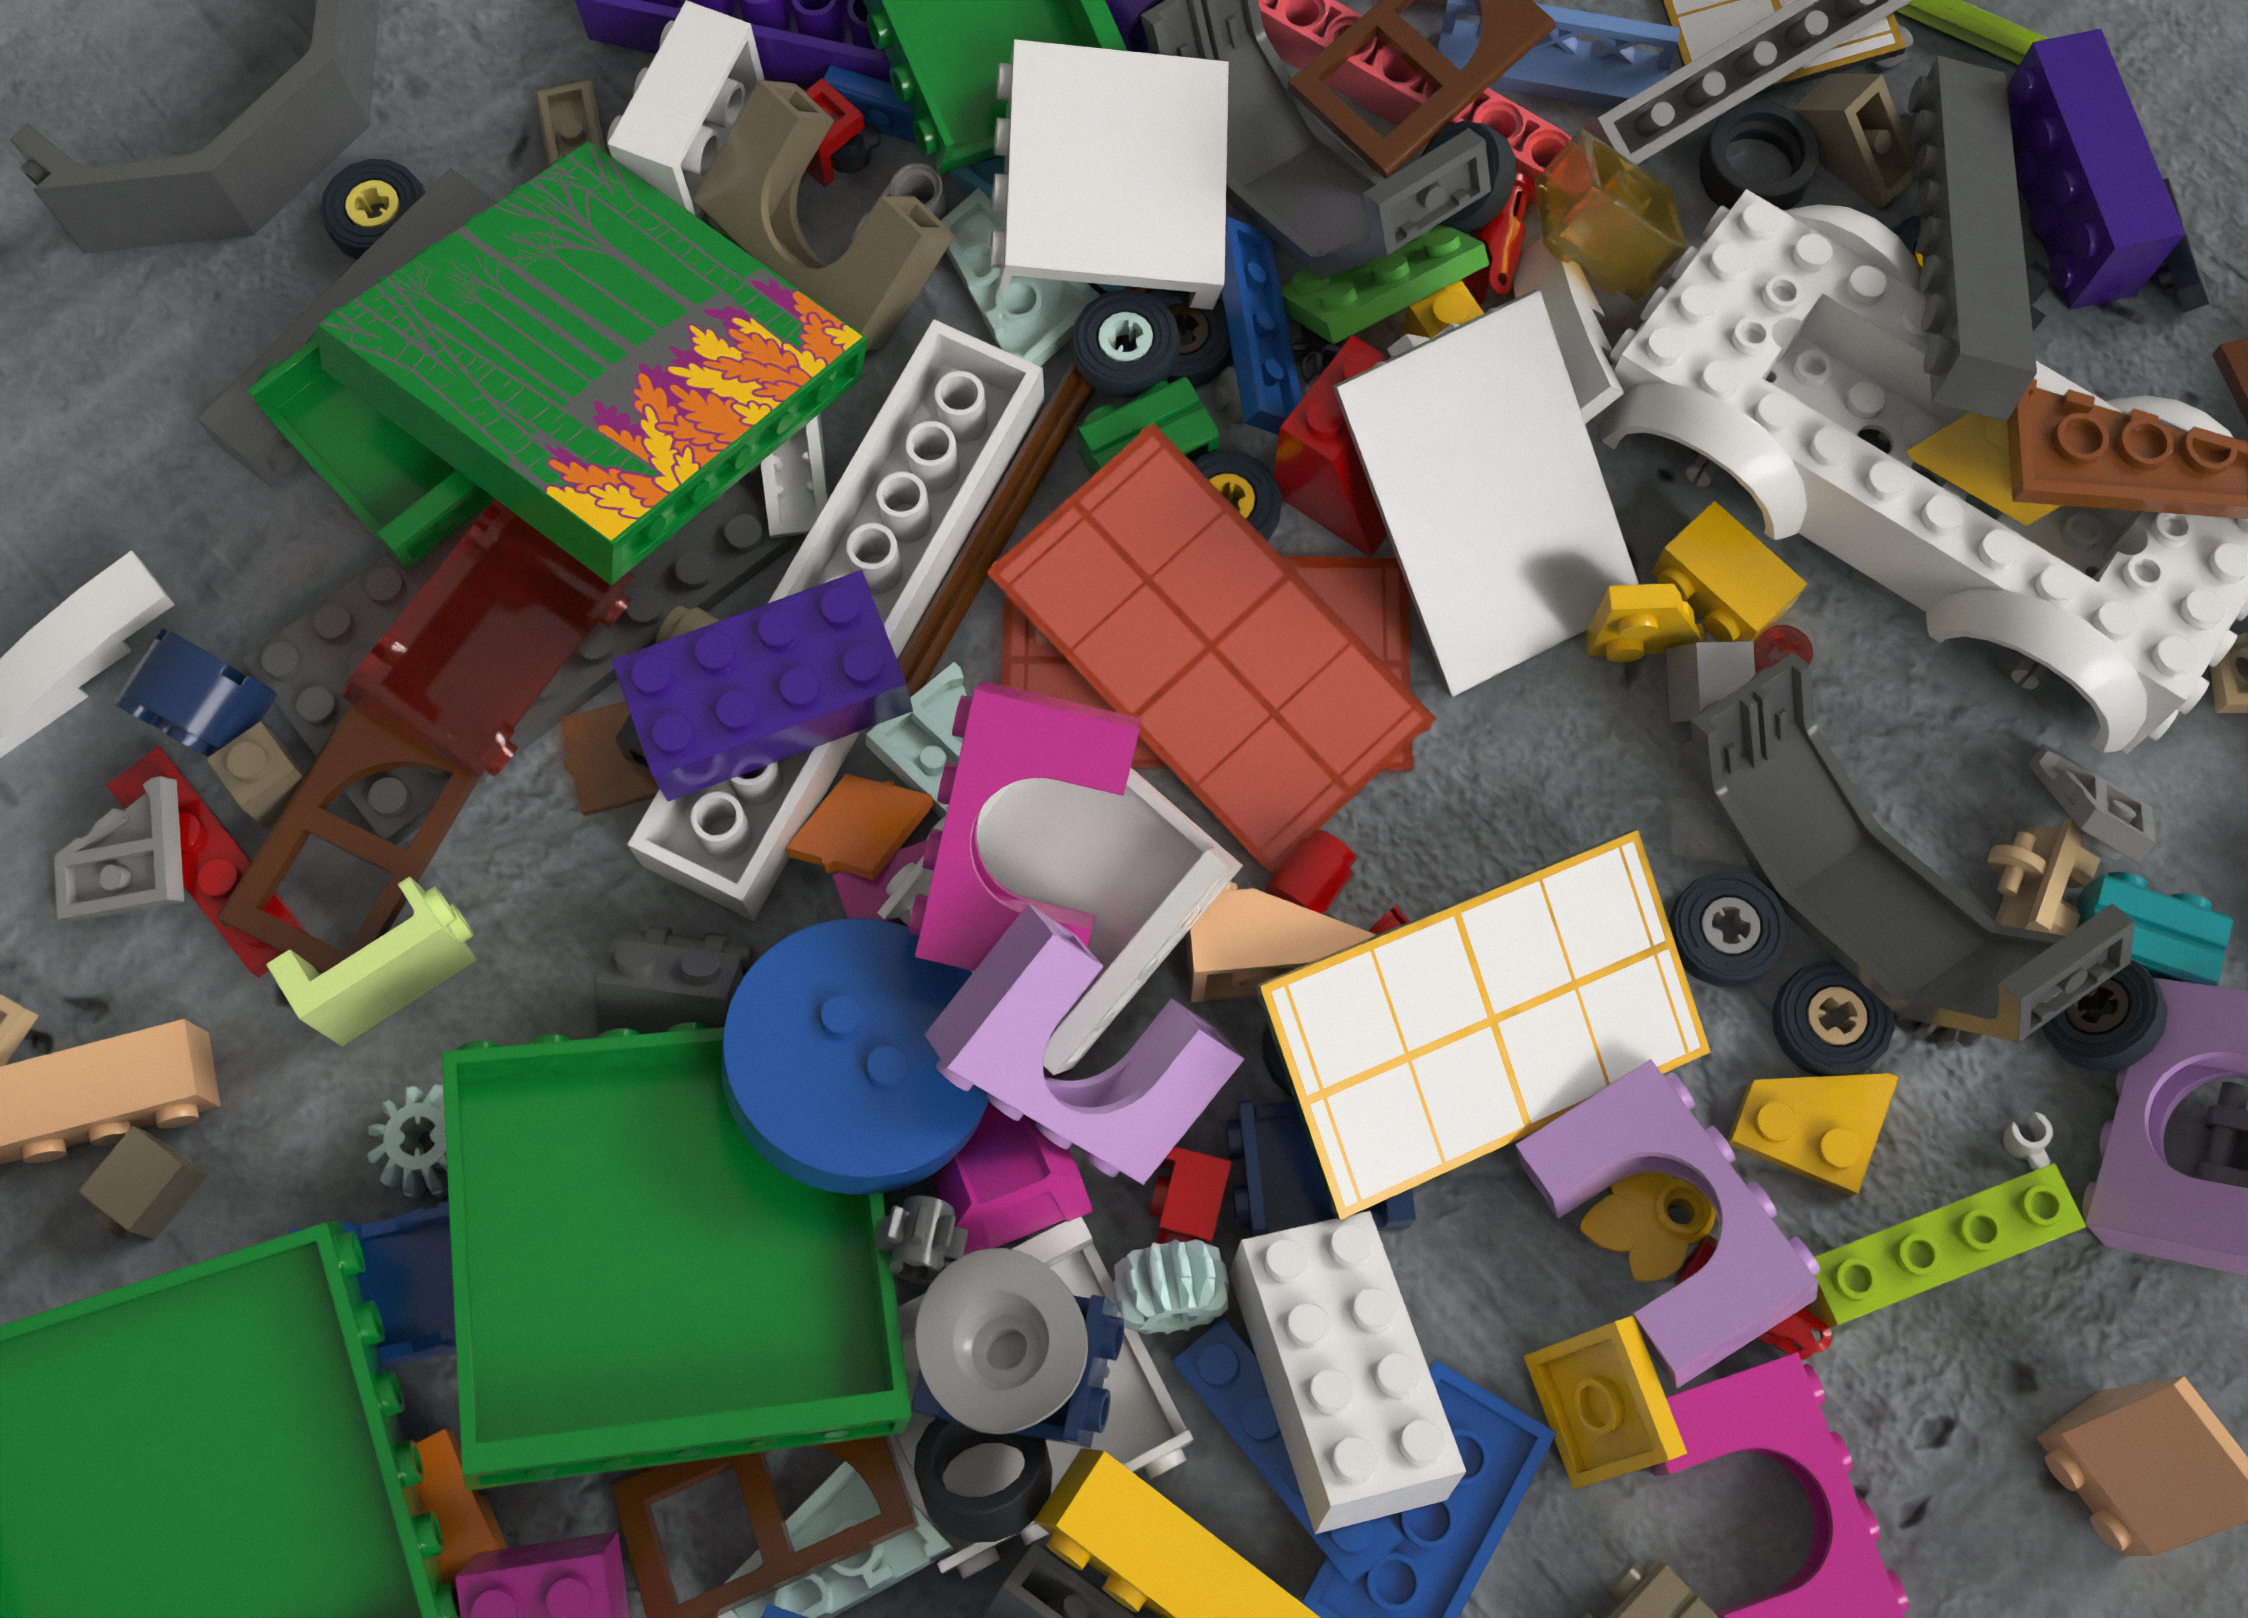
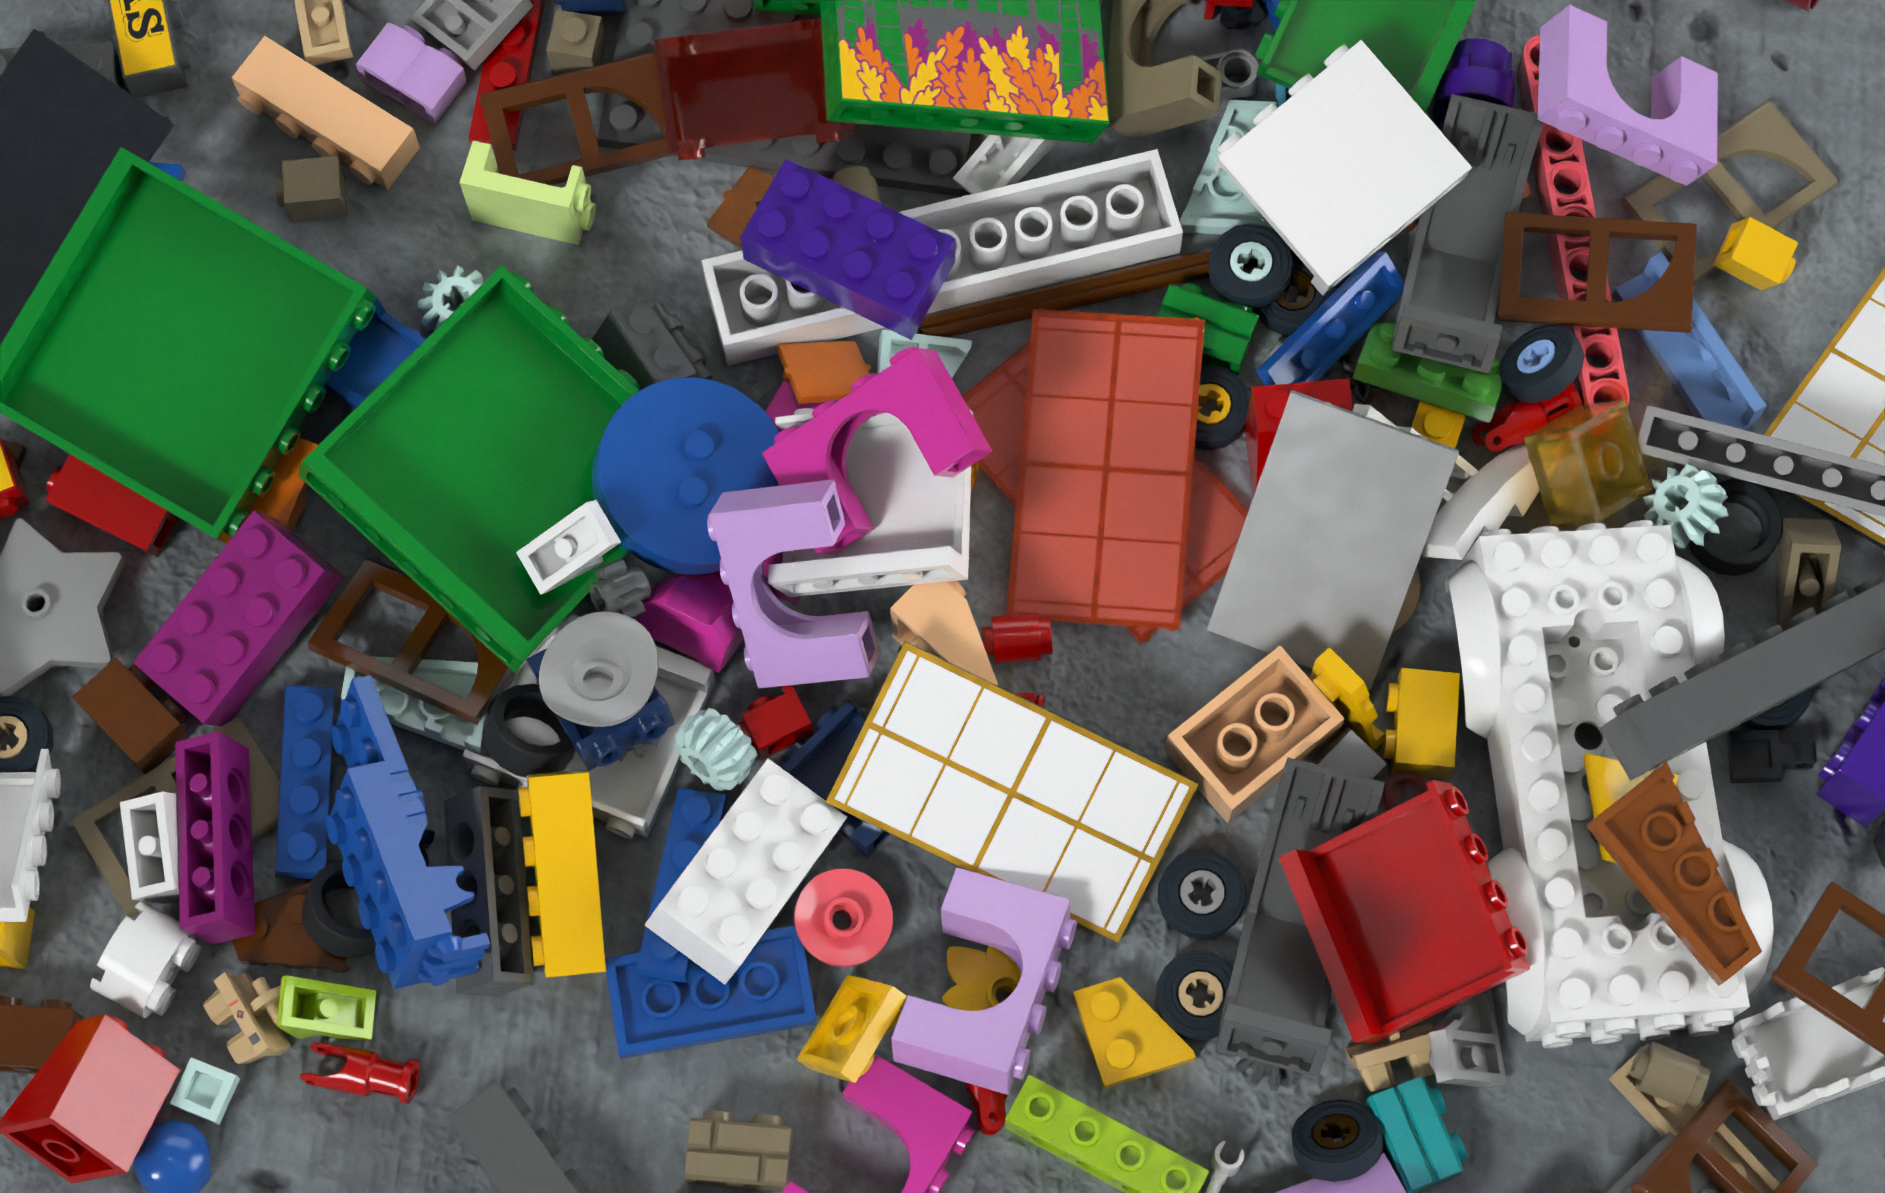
camera: 50 degrees right, 0 degrees up
(118, 968) = (412, 72): none -> lavender brick
(832, 1253) = (569, 547): none -> white slope
(1489, 1290) = (855, 897): none -> coral dish
(1614, 738) = (1248, 731): none -> light nougat brick
(1737, 151) = (1689, 488): none -> light aqua gear
(1953, 741) = (1406, 914): none -> red panel

